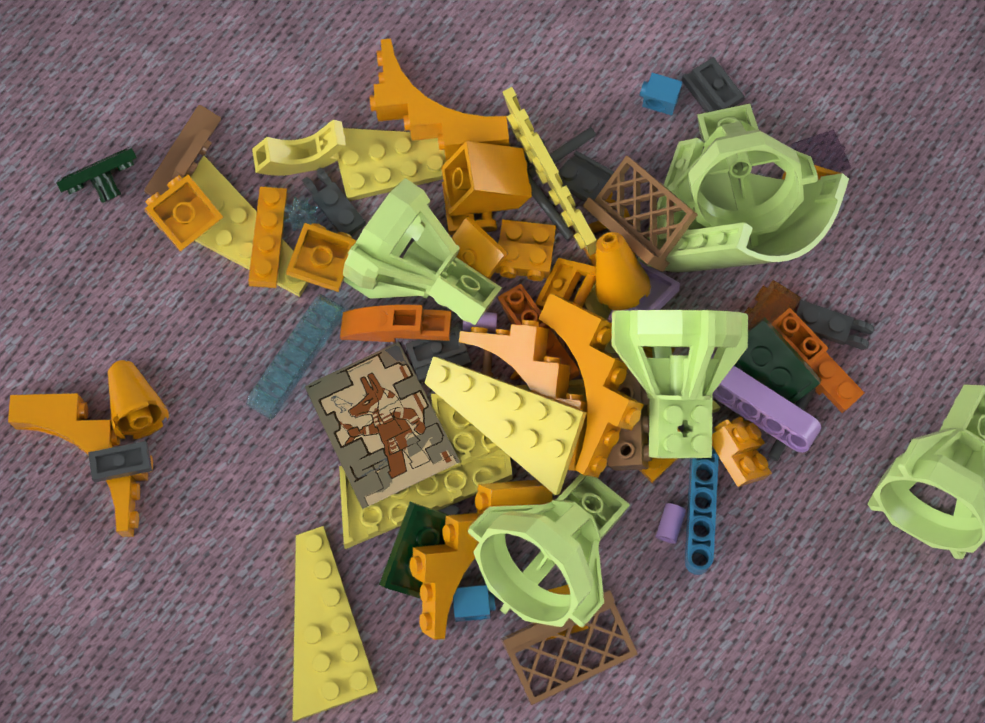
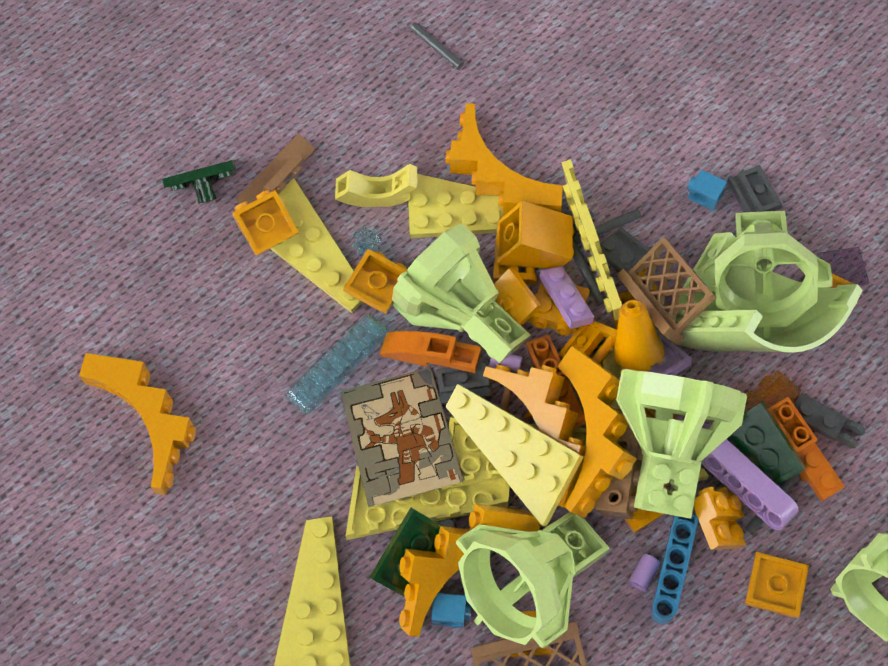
camera: 15 degrees right, 5 degrees down
(120, 461) = (166, 426): dark grey plate -> none
(133, 402) = (189, 378): light orange cone -> none
(267, 237) = (334, 256): light orange plate -> none
(335, 204) = (397, 238): dark grey hinge -> none
(533, 239) = (566, 297): none -> lavender plate
(811, 510) = (777, 585): none -> light orange plate

